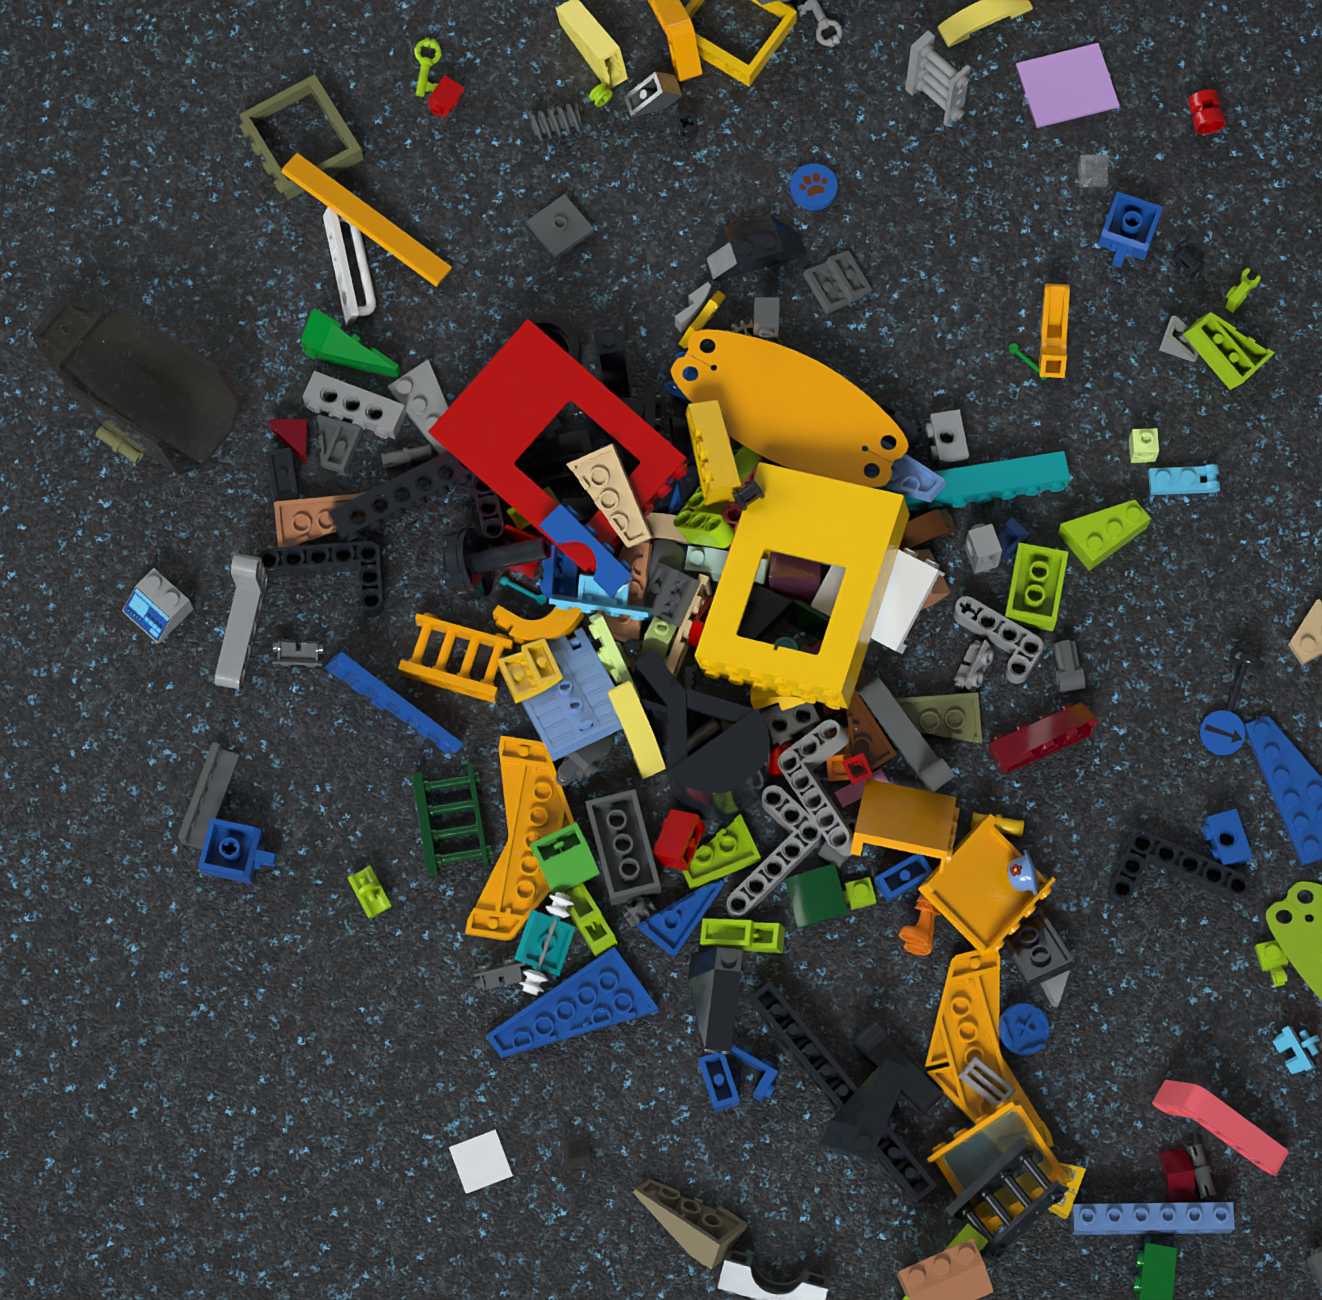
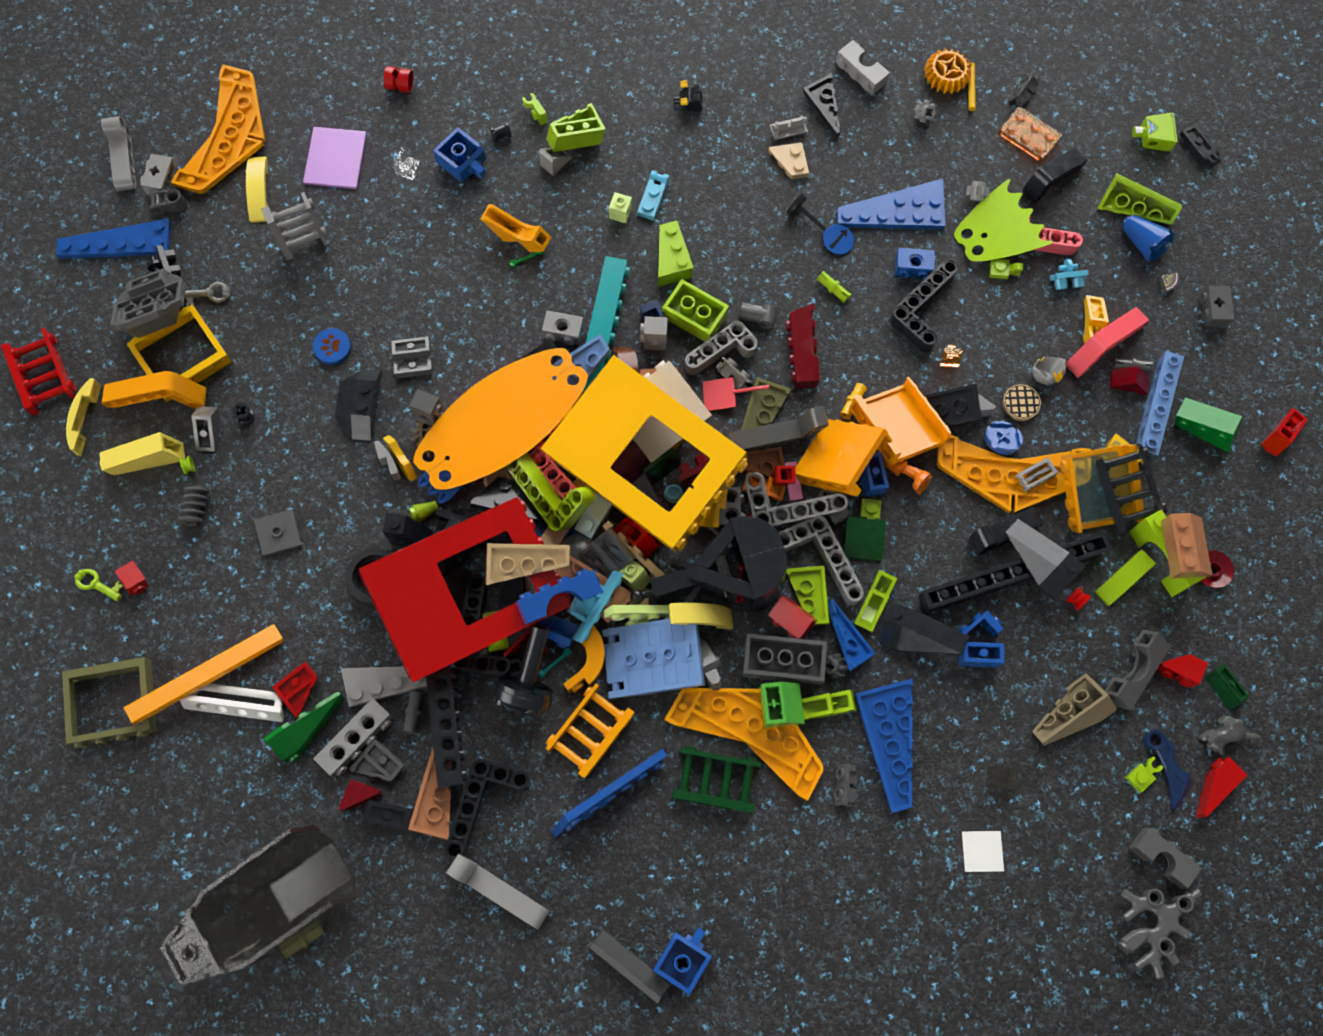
camera: 75 degrees left, 0 degrees up
(157, 606) = (454, 956): light grey slope -> none
(287, 654) = (537, 861): dark grey hinge -> none
(369, 892) = (752, 863): lime hips -> none
(388, 322) = (296, 688): none -> red wing
(530, 670) = (625, 678): yellow slope -> none
(545, 943) = (839, 742): teal plate -> none
(647, 371) = (422, 511): none -> lime cone
(712, 452) = (517, 479): yellow wedge -> none
(748, 494) = (565, 463): black bush -> none
(841, 1185) = (1078, 598): none -> red wheel
(892, 1237) = (1124, 577): none -> lime slope
(941, 659) = (721, 393): none -> coral piece
(1023, 874) = (902, 392): medium blue hat -> none
(1086, 1040) = (1021, 402): none -> tile
(1112, 927) = (951, 356): none -> clear orange tile
(1143, 1059) = (1049, 370): none -> light grey hair
(1149, 748) = (833, 287): none -> lime pin
(1254, 1098) = (1095, 316): none -> yellow slope

